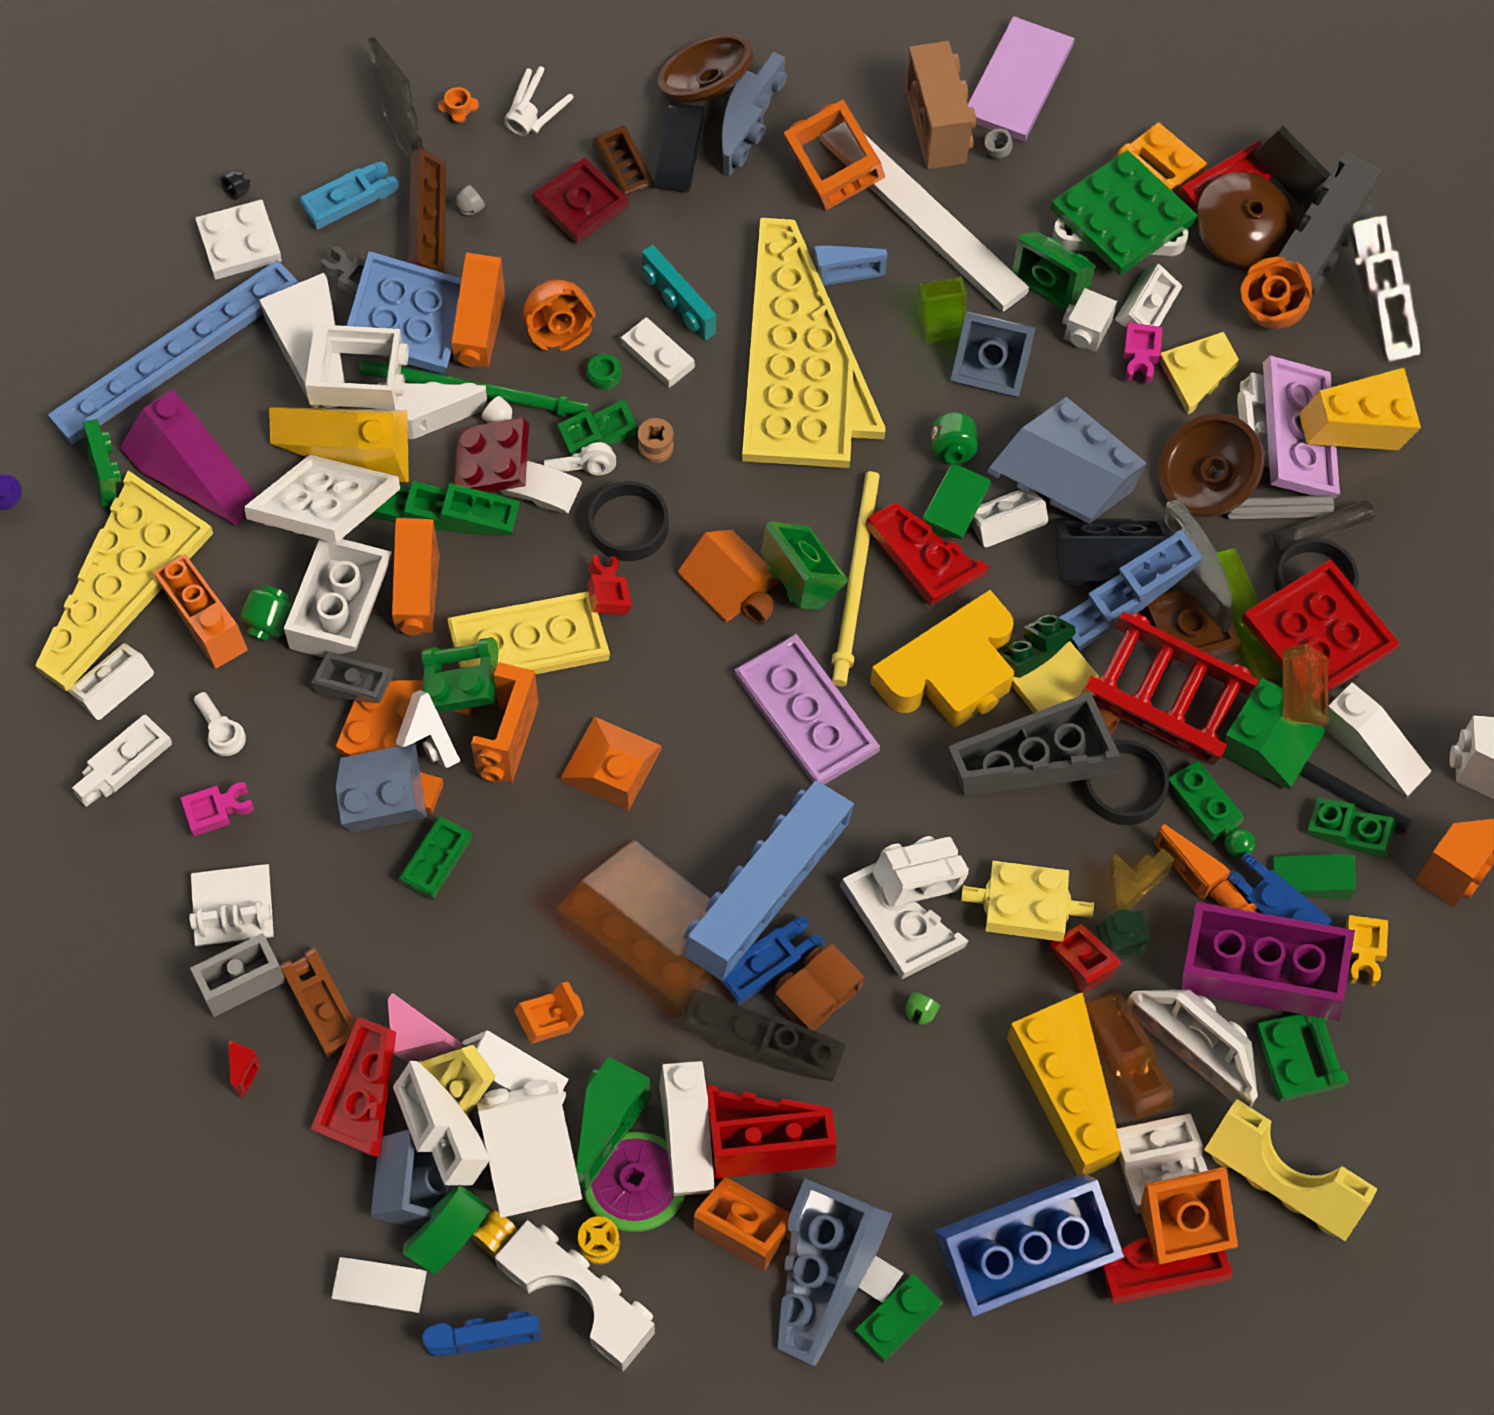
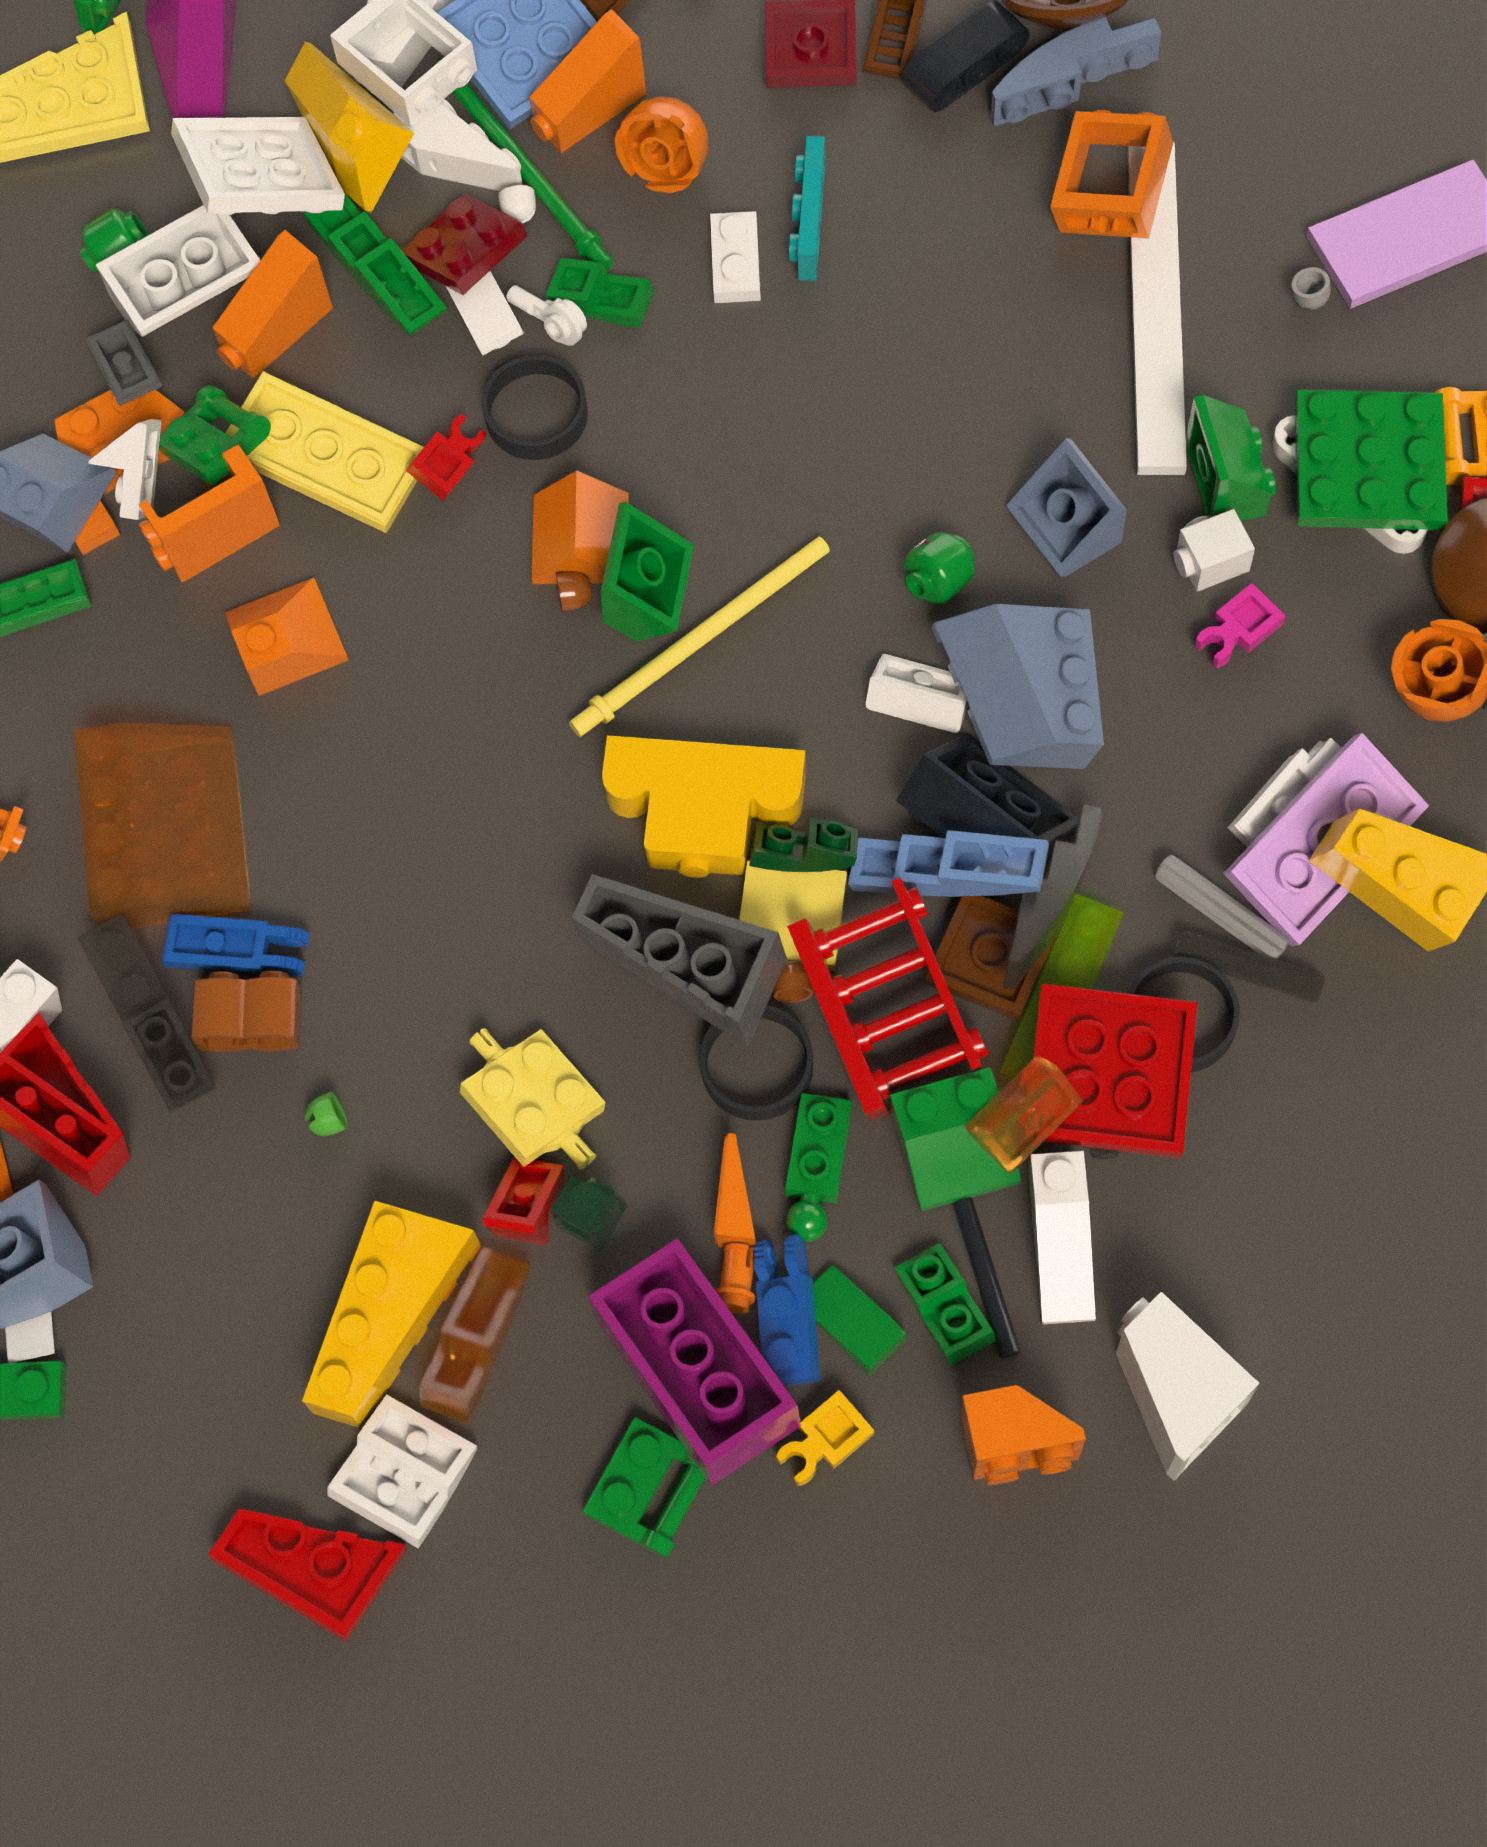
camera: 50 degrees right, 5 degrees up
(201, 611) = (57, 198): orange slope -> none
(603, 371) = (663, 238): green tile -> none
(653, 449) = (647, 353): medium nougat wheel -> none
(767, 880) = (293, 863): medium blue brick -> none
(802, 374) = (856, 383): light yellow wing -> none
(807, 710) = (518, 733): lavender tile -> none
(848, 264) = (1013, 302): medium blue slope -> none
(905, 932) = (389, 1014): white wing -> none
(920, 870) = (450, 977): white brick -> none
(924, 558) = (787, 665): red wing -> none
(939, 104) = (1277, 197): medium nougat brick -> none
(941, 309) = (1063, 414): clear neon green piece -> none
(956, 502) = (874, 634): green slope -> none
(1029, 1243) = (184, 1429): blue slope -> none
(1131, 885) = (642, 1172): clear yellow slope -> none
(1150, 298) = (1311, 579): white slope -> none
(1189, 1215) = (353, 1542): orange slope -> none
(1198, 368) = (1289, 692): light yellow wing -> none
(1200, 1038) = (560, 1384): white wedge -> none
(1202, 450) = (1177, 802): reddish brown dish -> none
(1330, 1199) = (512, 1650): light yellow arch -> none

